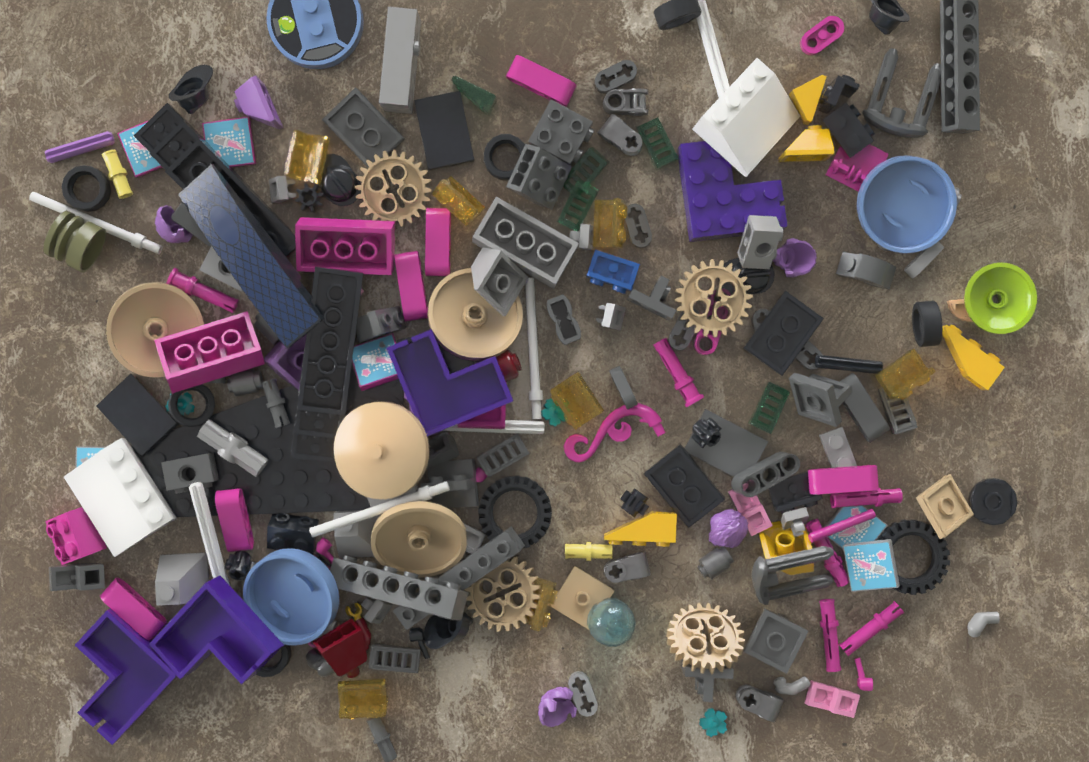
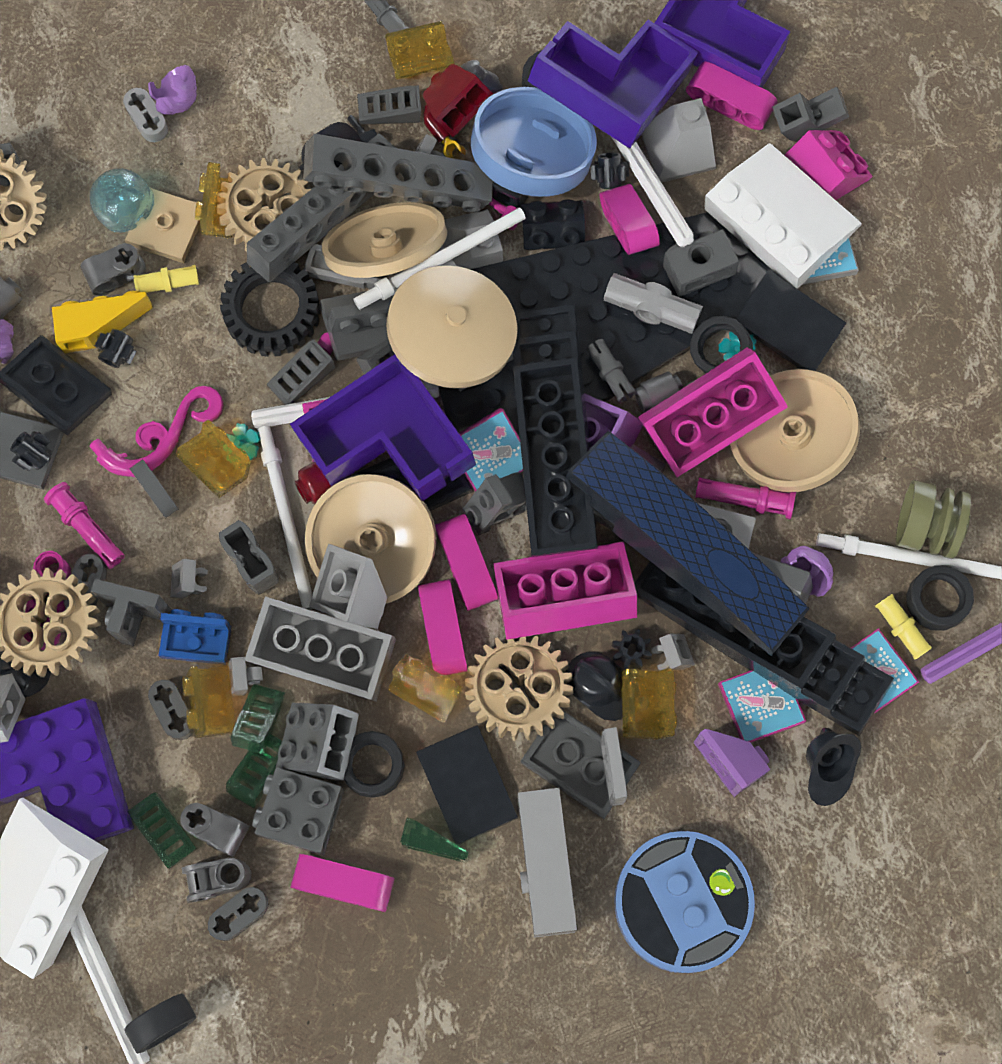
camera: 175 degrees right, 15 degrees down
(339, 112) = (613, 767): none -> light grey tile

